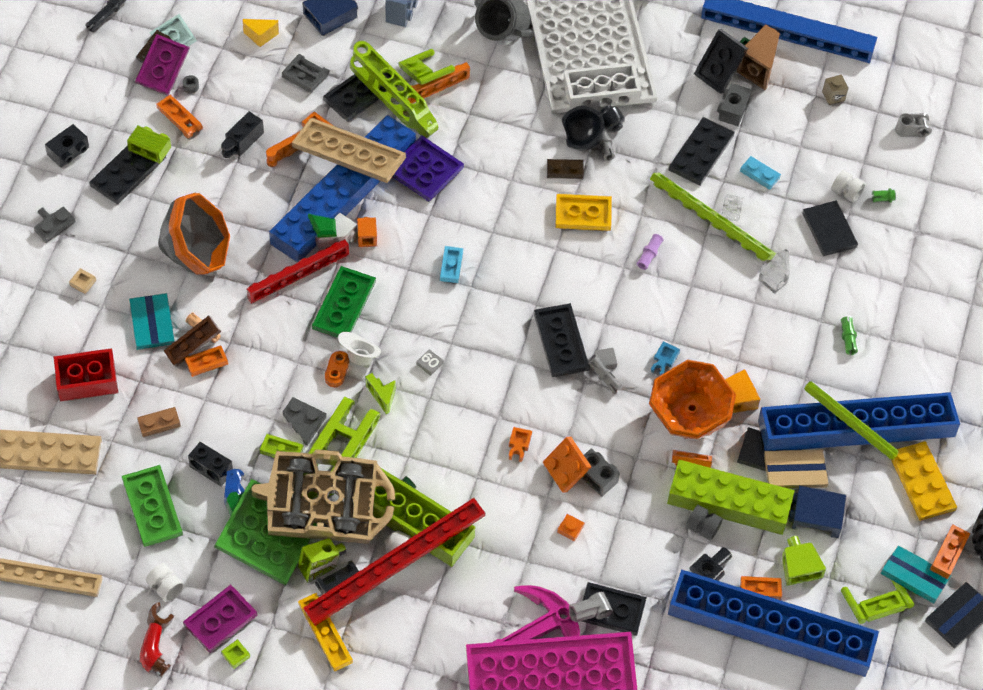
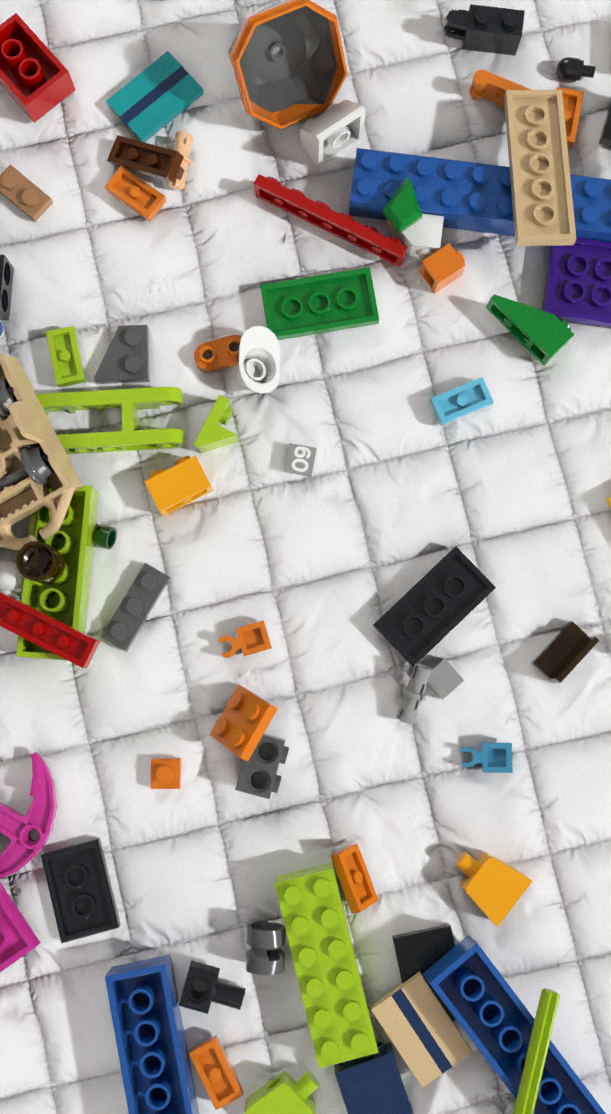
camera: 65 degrees right, 25 degrees up
(245, 240) = (333, 131): none -> white slope
(296, 109) = (573, 69): none -> black cylinder
(403, 429) = (178, 484): none -> light orange brick
(408, 505) = (40, 562): none -> dark brown wheel
(435, 207) = (536, 329): none -> green slope
(456, 485) = (135, 607): none -> dark grey plate
(594, 606) = (55, 874): light grey piece -> none
(629, 292) = (564, 652): none -> dark brown panel
(692, 400) = (433, 876): orange rock -> none

